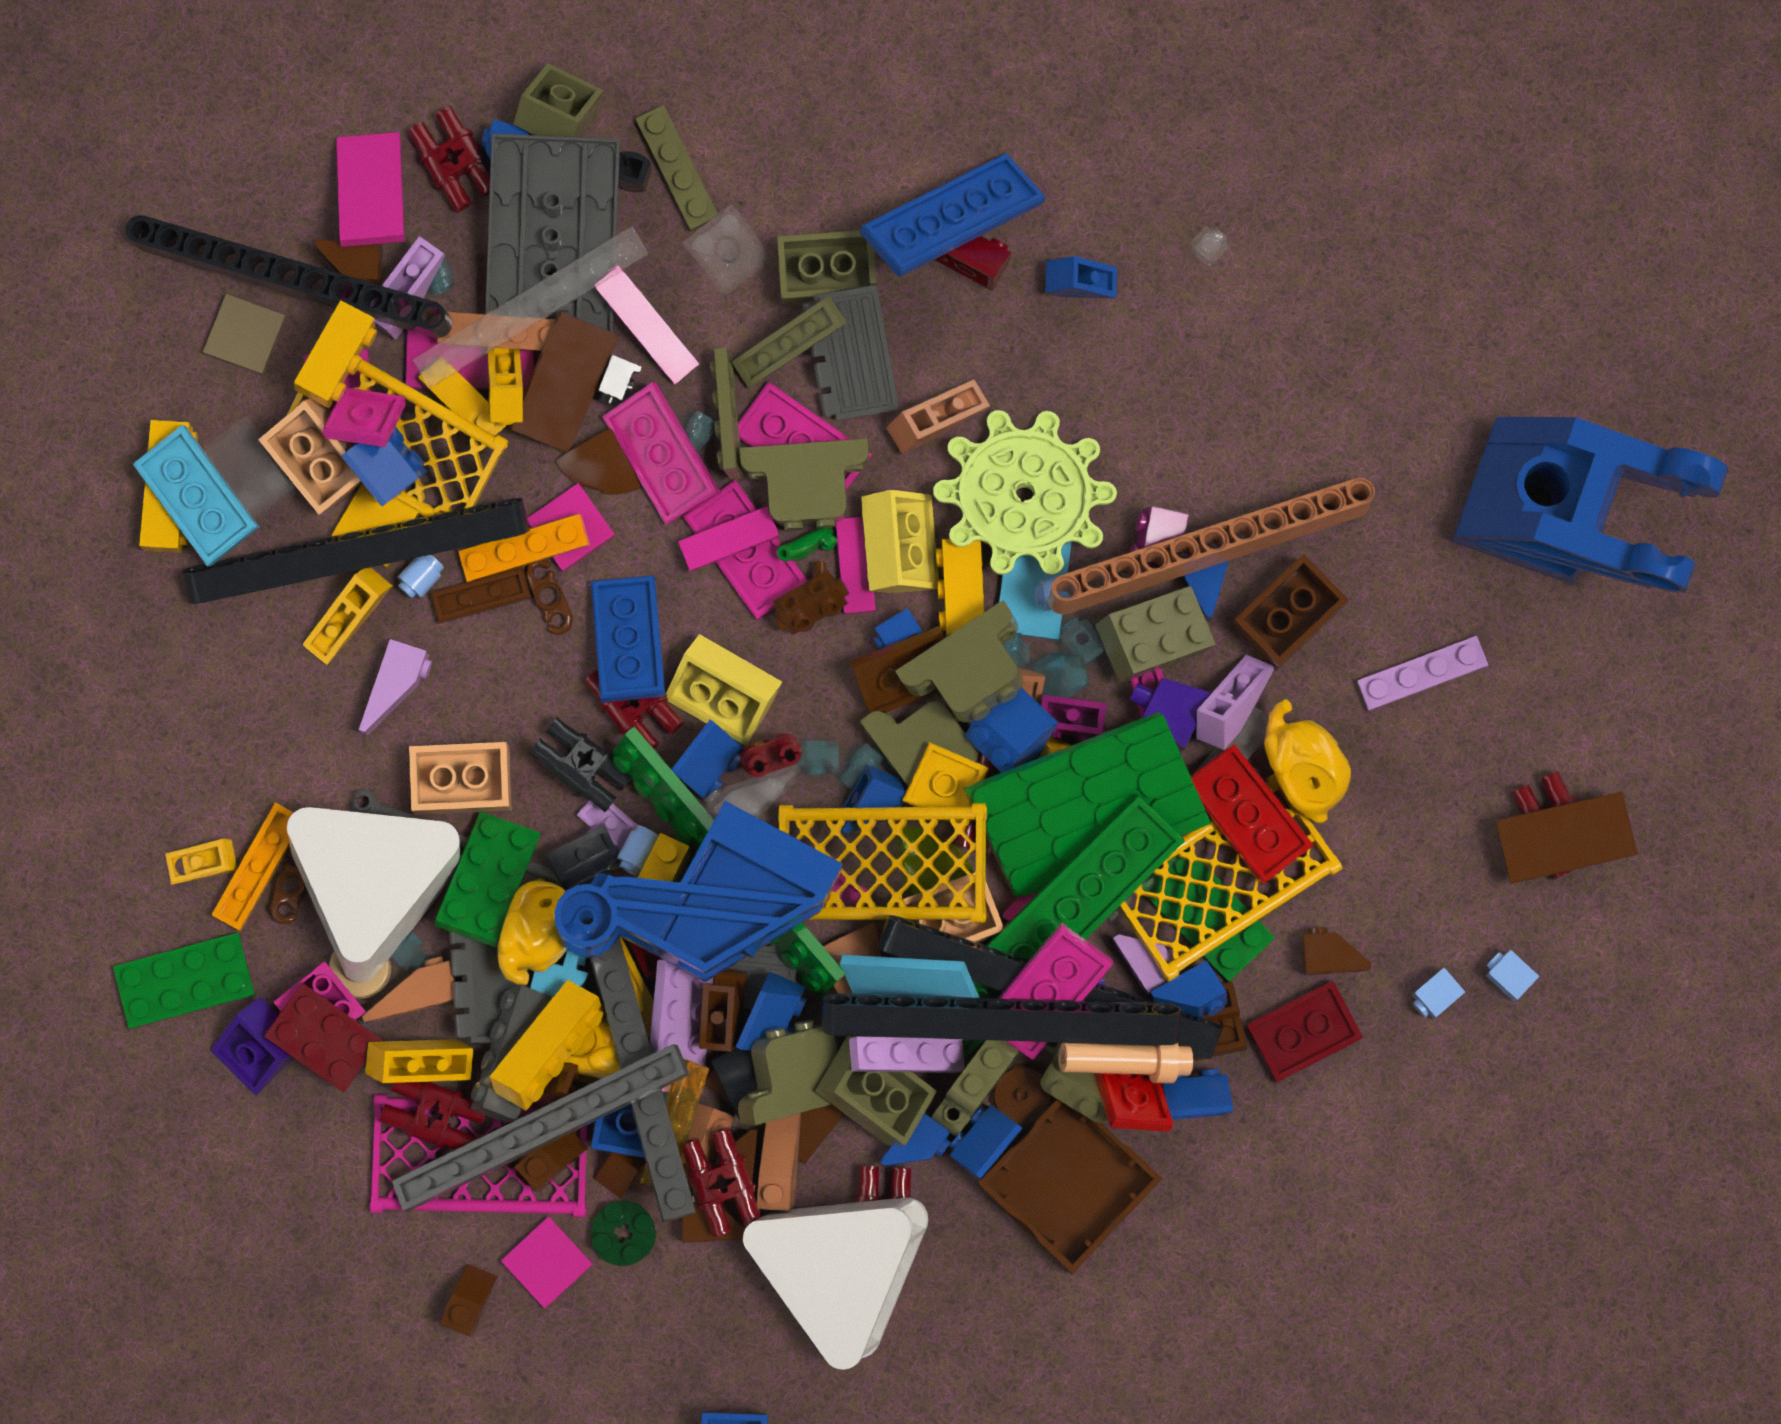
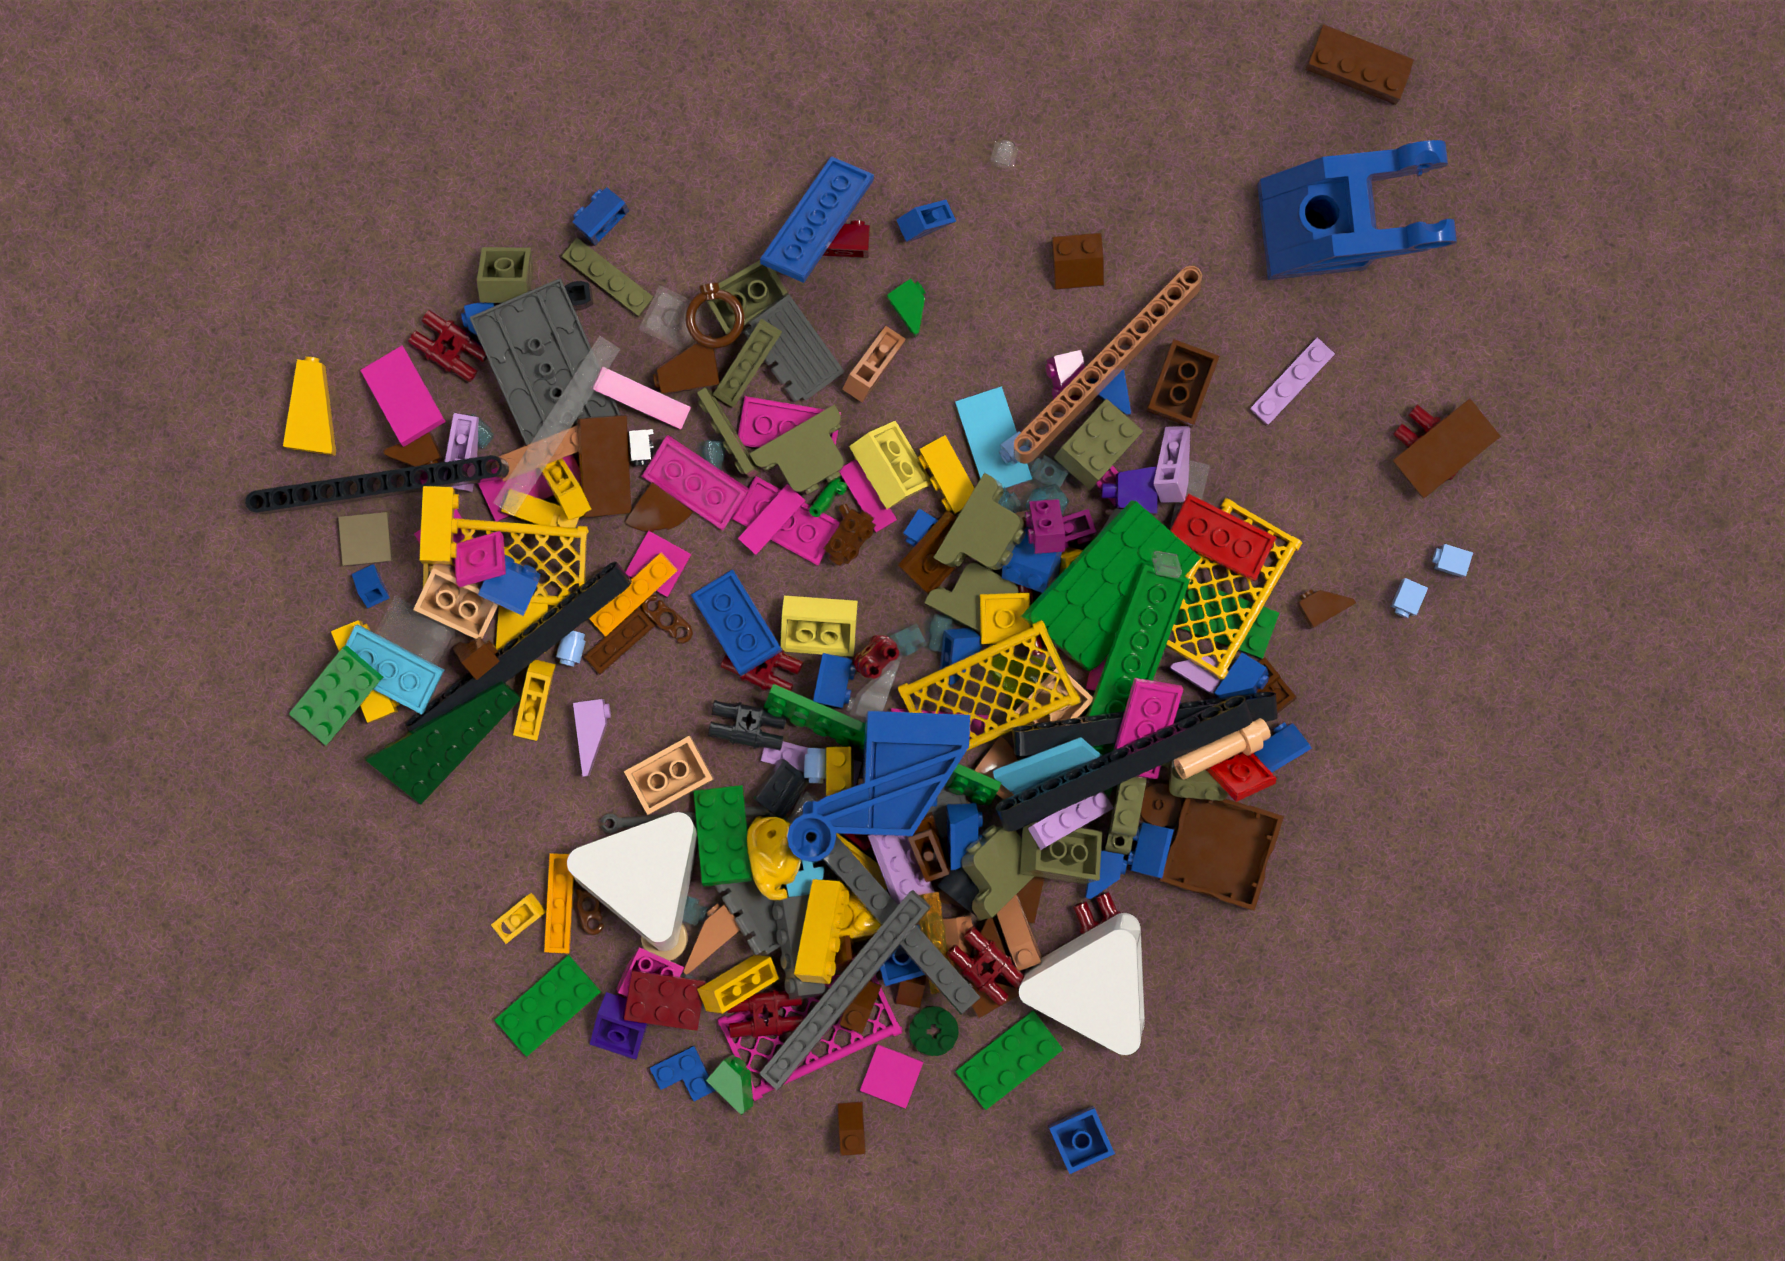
camera: 25 degrees left, 5 degrees up
(119, 496) = (336, 695): none -> green plate
(205, 614) = (437, 747): none -> dark green wing
(222, 391) = (370, 586): none -> blue brick
(254, 156) = (309, 414): none -> yellow slope
(305, 530) = (477, 656): none -> reddish brown arch
(311, 1132) = (685, 1066): none -> blue plate
(356, 1177) = (733, 1083): none -> slope
(695, 1312) = (1009, 1060): none -> green plate
(703, 92) = (600, 215): none -> blue slope
(719, 318) = (688, 369): none -> reddish brown slope
(786, 239) = (712, 292): none -> reddish brown piece
(1013, 367) = (909, 304): none -> green slope
(1033, 461) = (964, 363): yellowish green plate -> none
(1045, 696) = (1046, 526): none -> magenta brick
(1164, 809) = (1166, 564): none -> clear tile
(1236, 411) = (1078, 261): none -> reddish brown slope
(1304, 1031) = (1330, 667): dark red plate -> none
(1306, 763) = (1244, 483): yellow piece -> none
(1680, 341) = (1360, 64): none -> reddish brown slope

